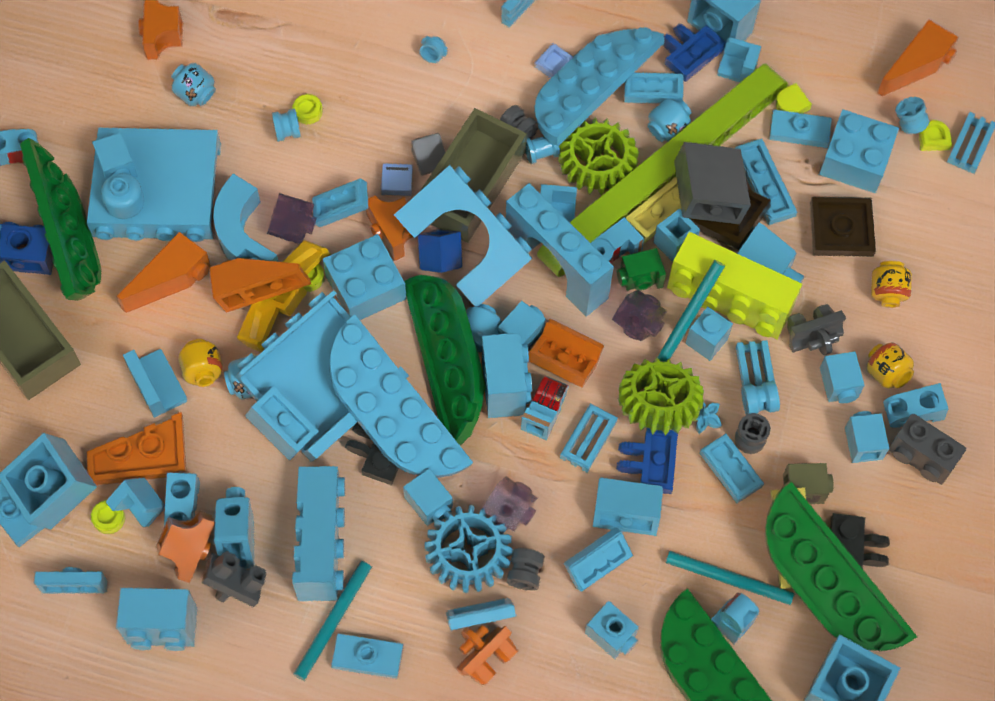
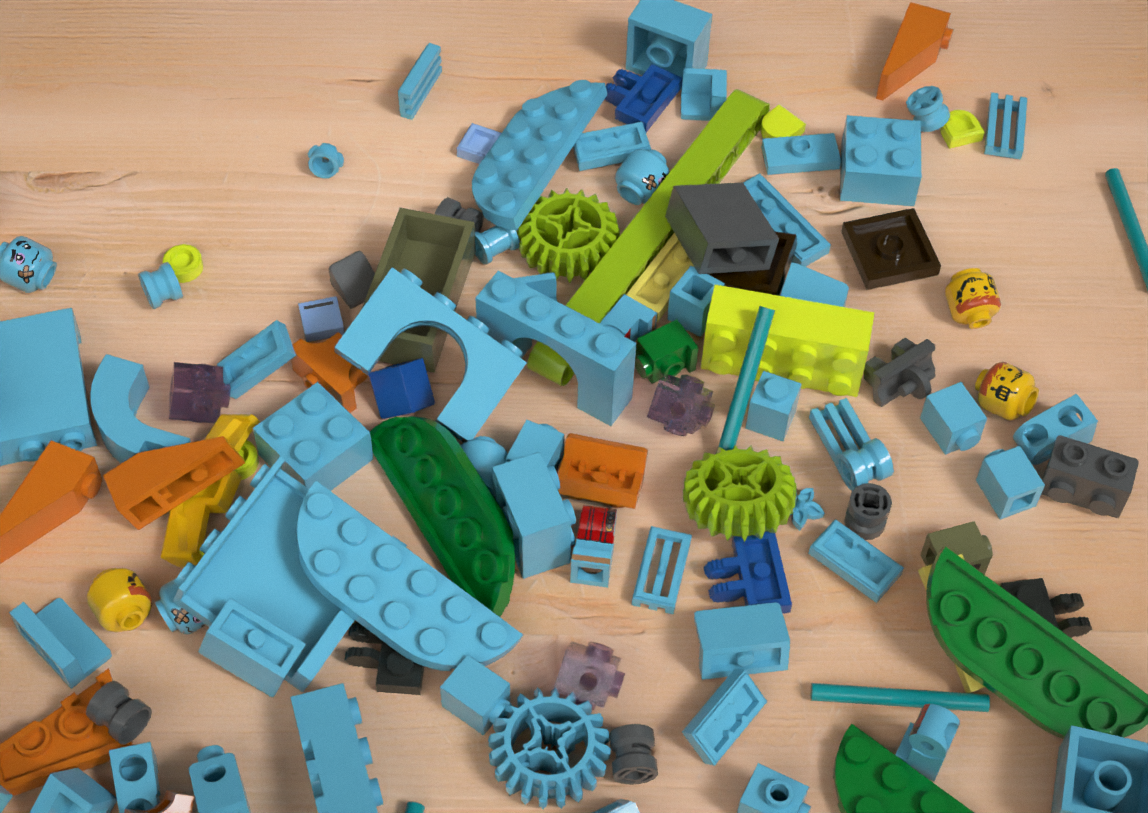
camera: 15 degrees left, 10 degrees down
(179, 447) = (118, 712): none -> dark grey wheel

